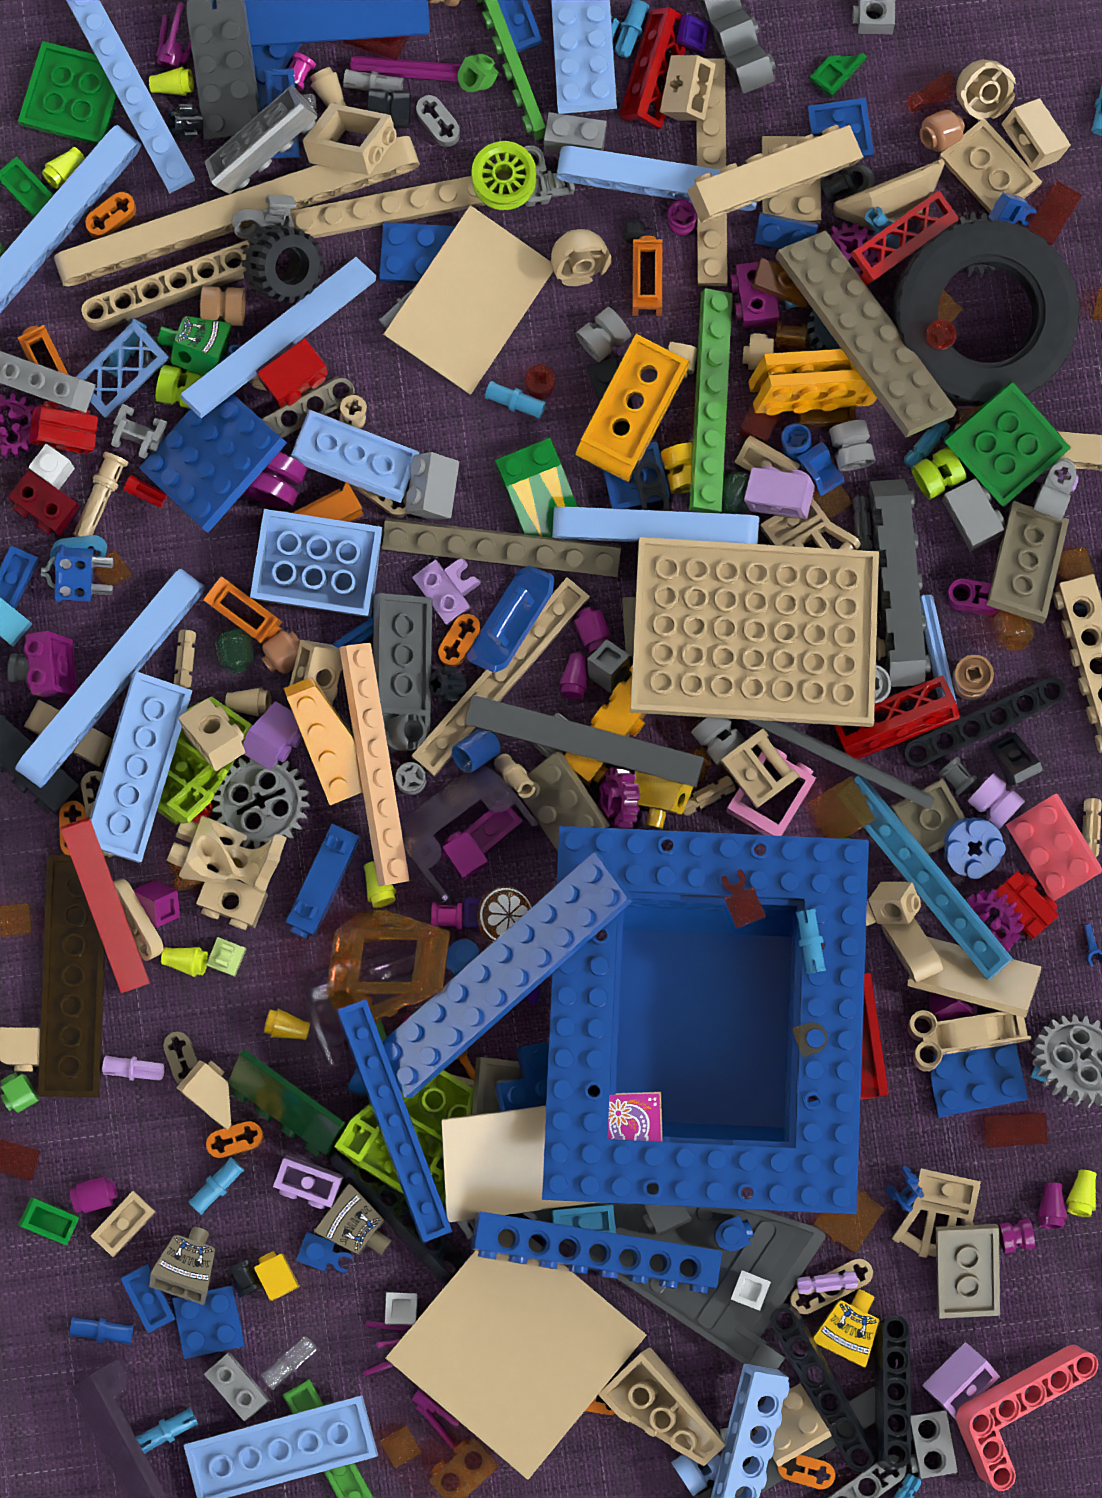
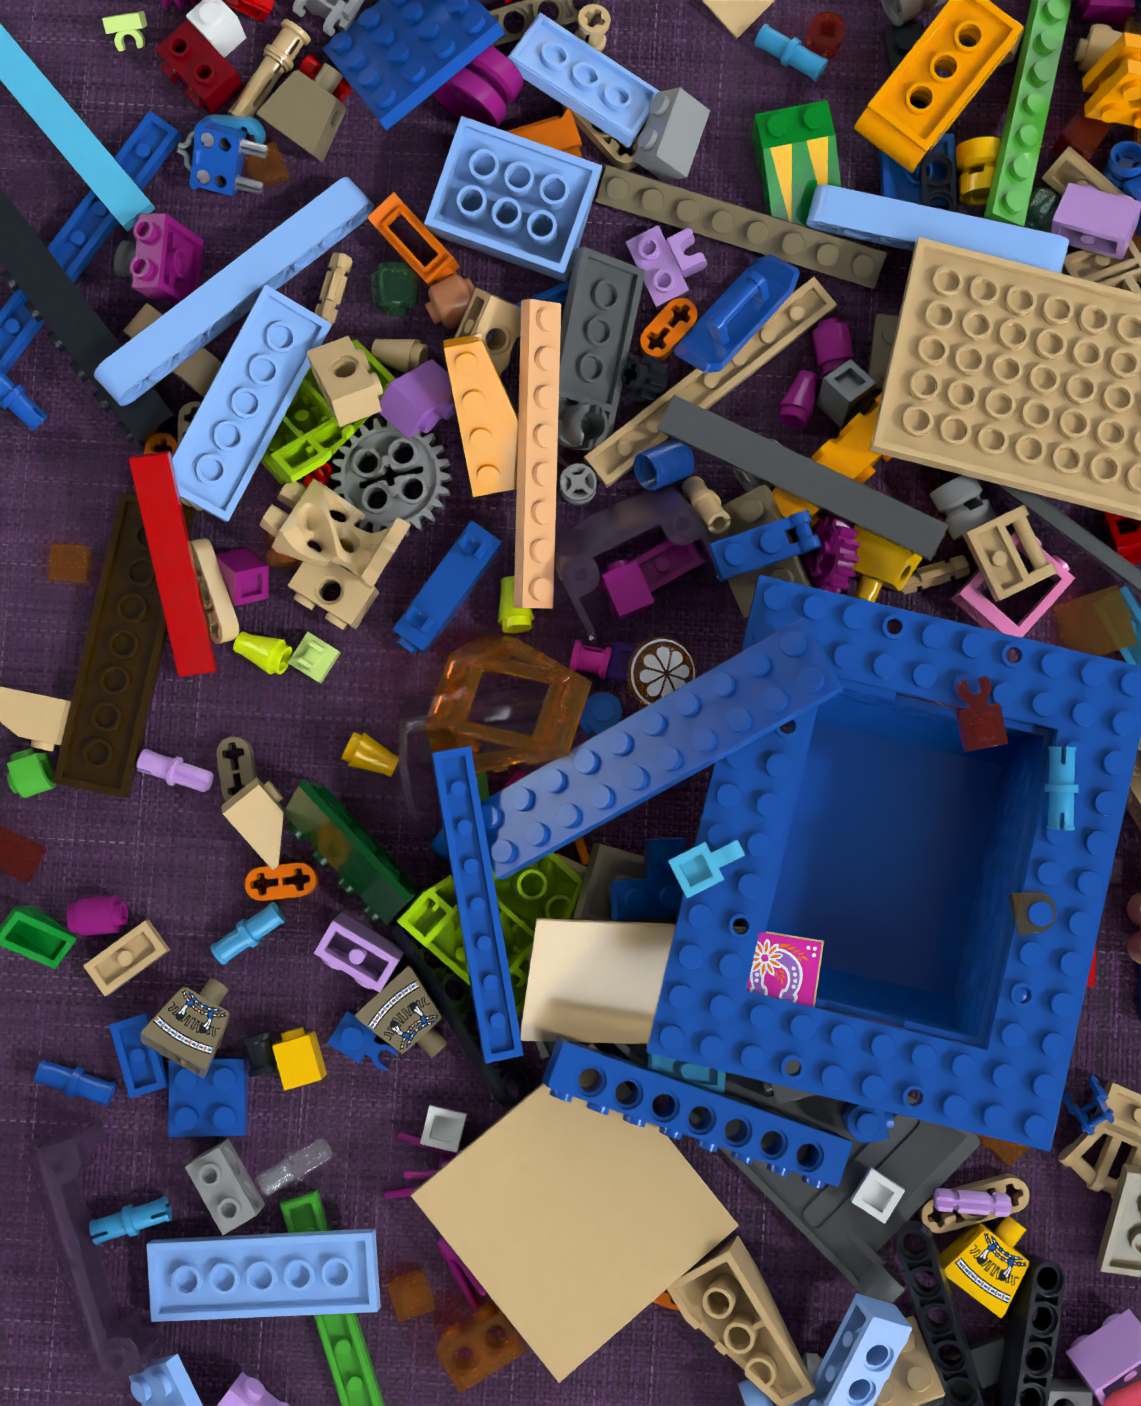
camera: 10 degrees right, 5 degrees up
(137, 522) = (307, 110): none -> dark tan torso
(554, 1052) = (699, 867): none -> medium azure plate
(563, 801) = (762, 546): none -> blue plate

